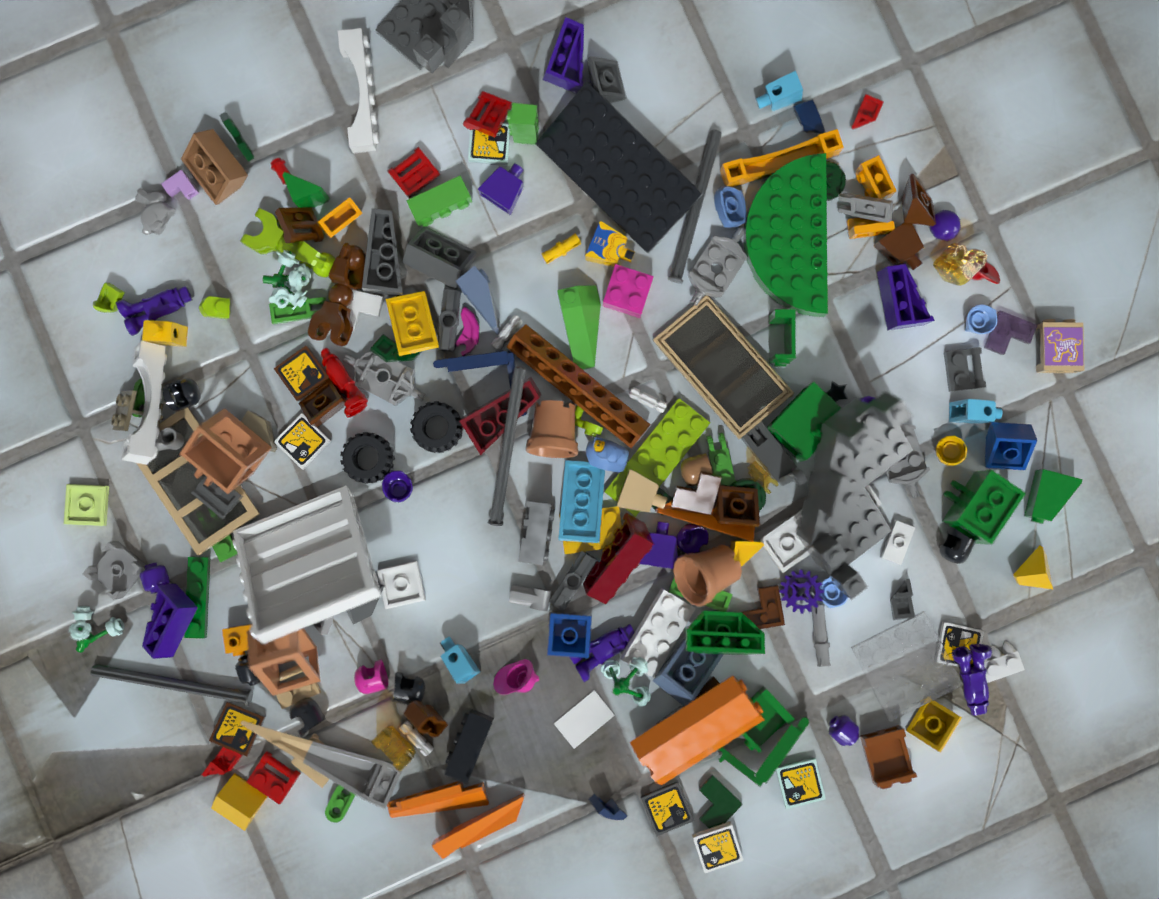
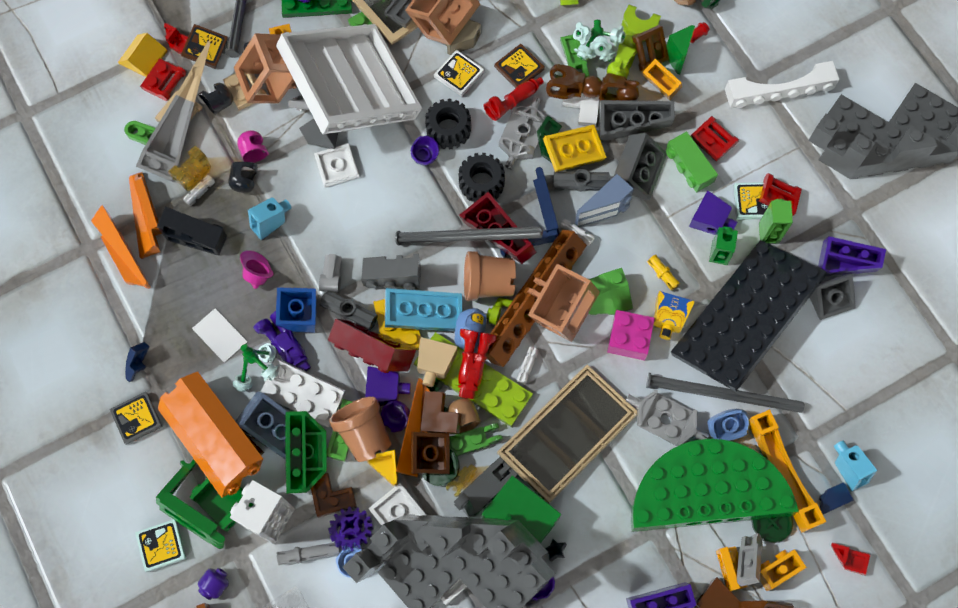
camera: 85 degrees right, 15 degrees down
(322, 403) = (491, 83): reddish brown slope -> none
(425, 718) = (215, 191): reddish brown brick -> none
(470, 333) = (571, 201): dark pink piece -> none
(541, 181) = (723, 245): none -> green brick
(593, 355) = (563, 302): none -> nougat piece
(647, 454) = (473, 363): none -> red piece
(717, 847) = (98, 467): tile -> none
(723, 801) = (140, 471): dark green tile -> none
(788, 318) = (623, 489): green panel -> none
(788, 678) = (268, 515): none -> white plate

